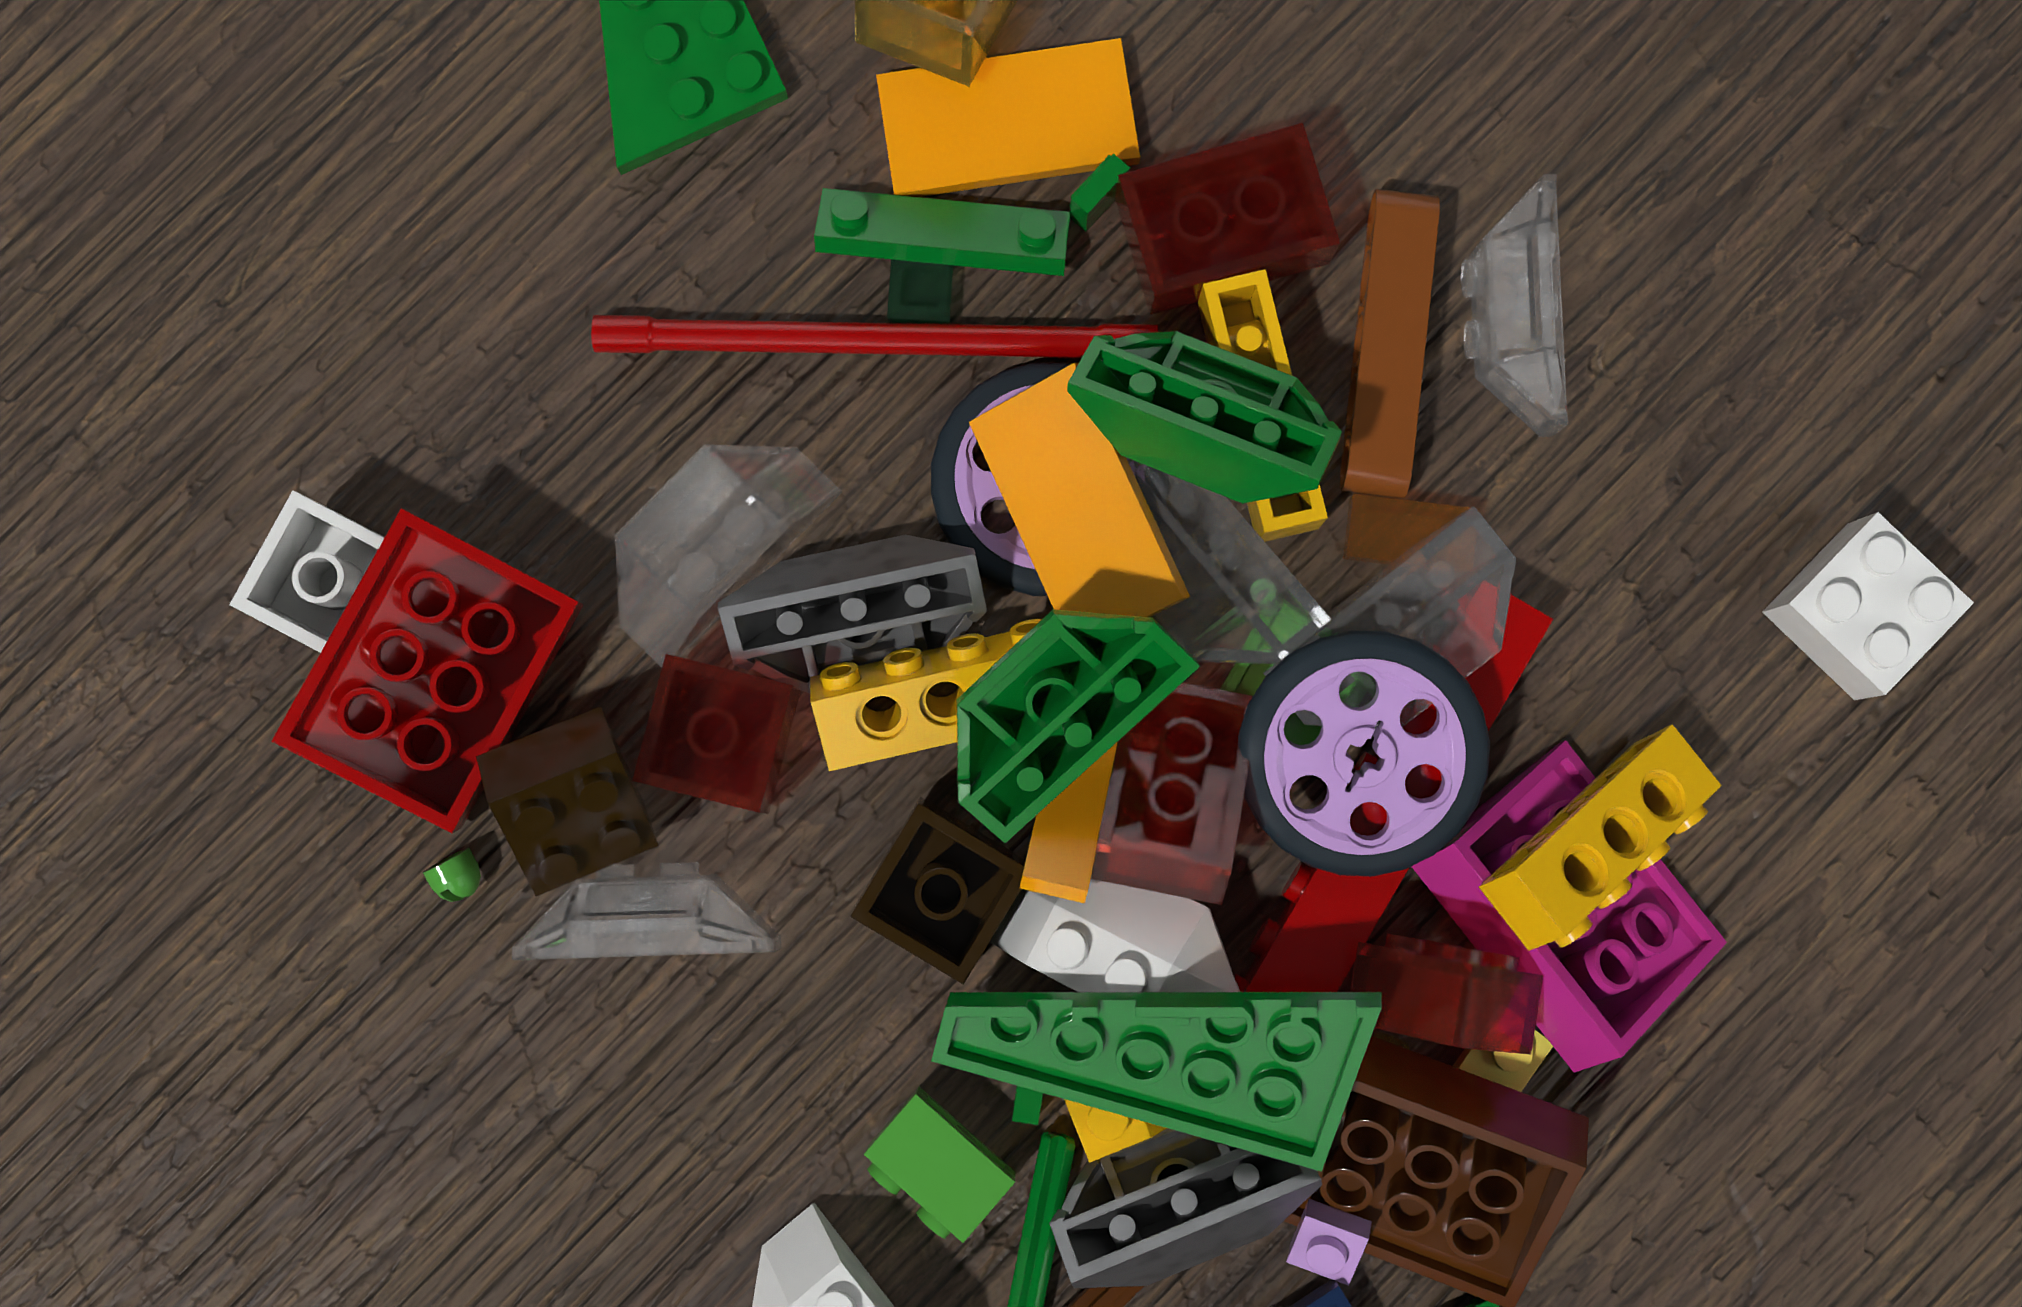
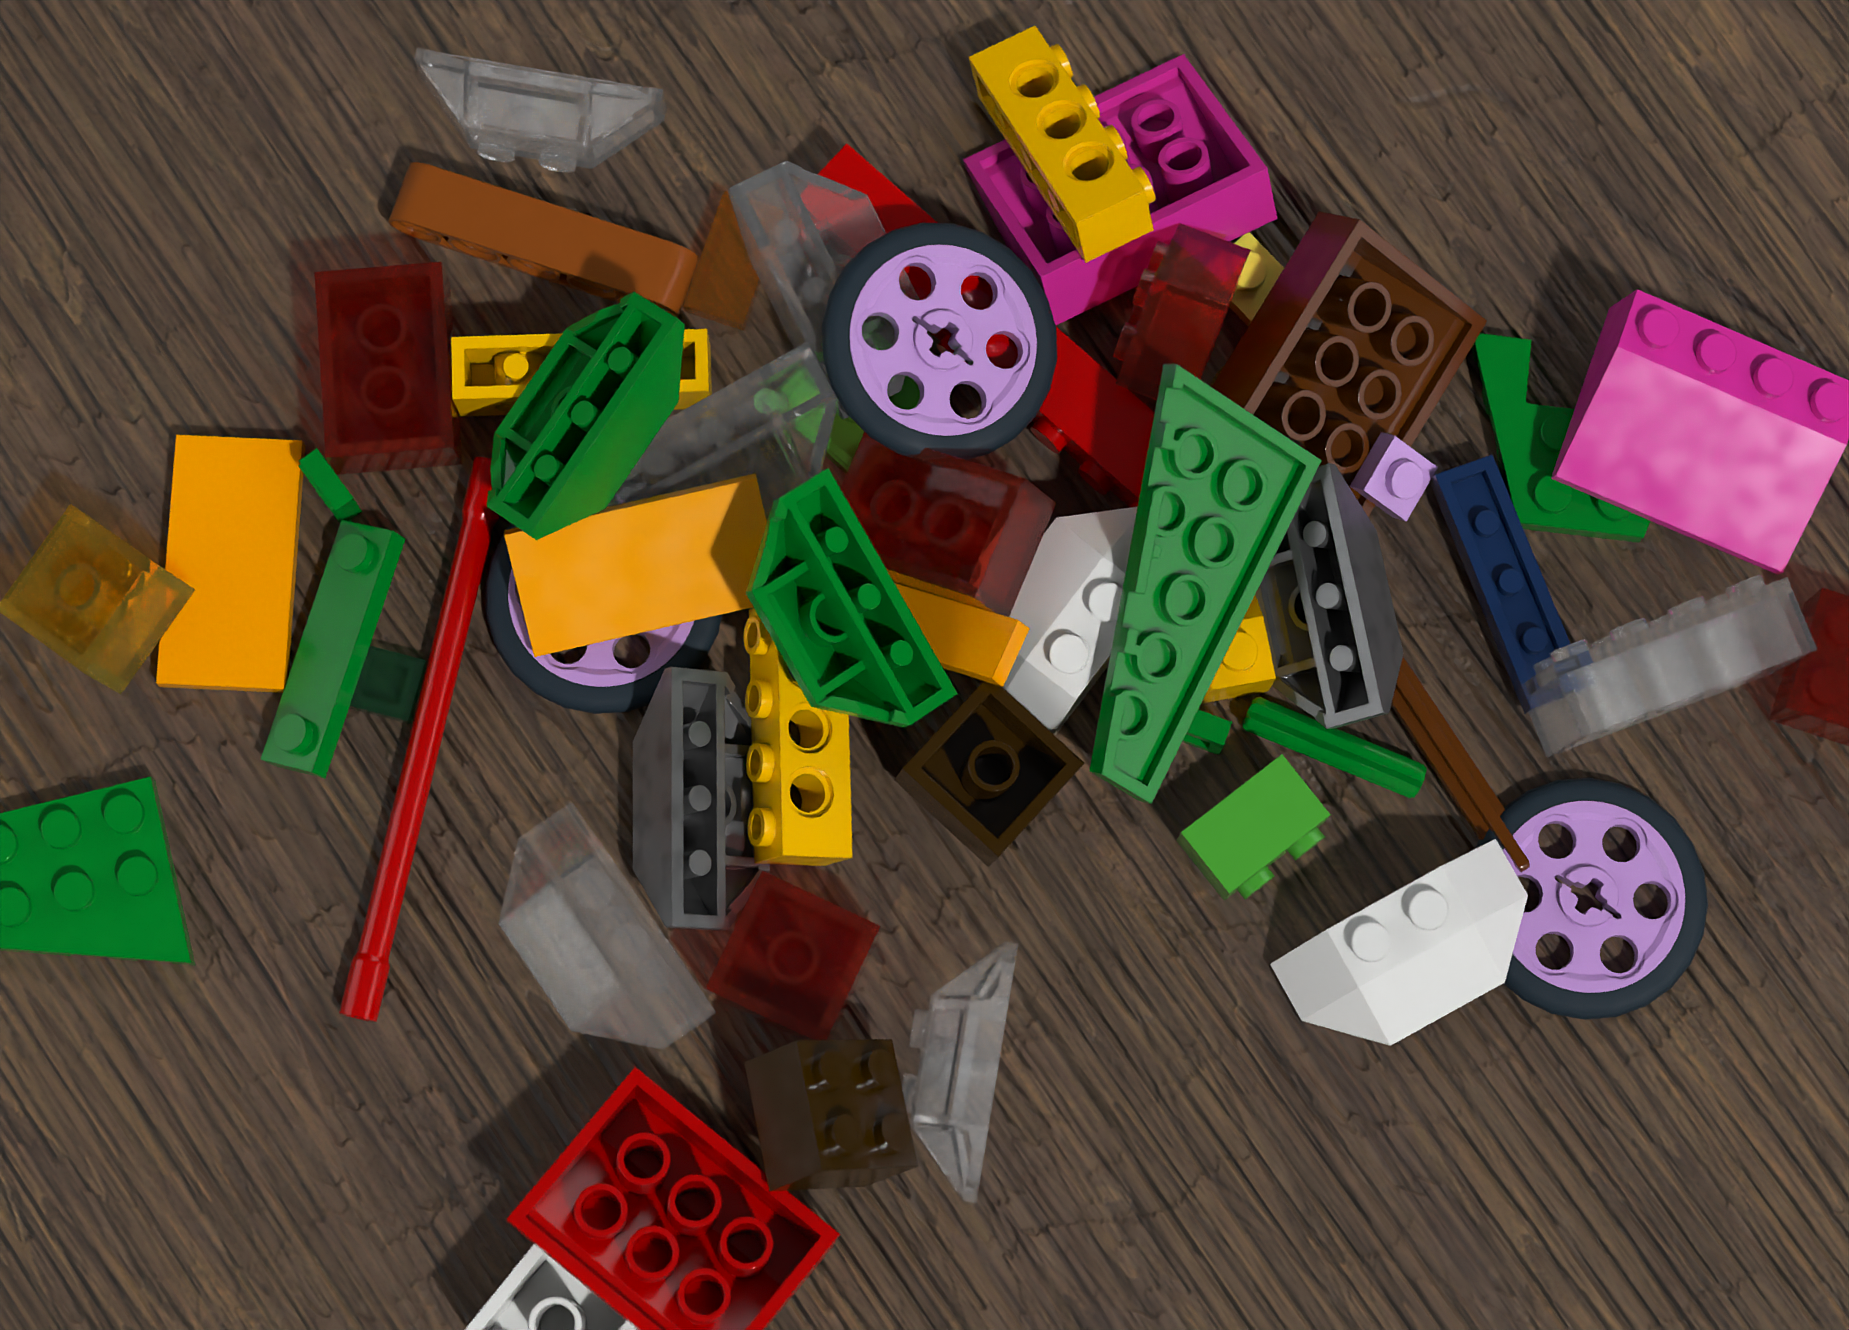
camera: 85 degrees left, 5 degrees down
(454, 876) = (879, 1258): bright green hinge -> none

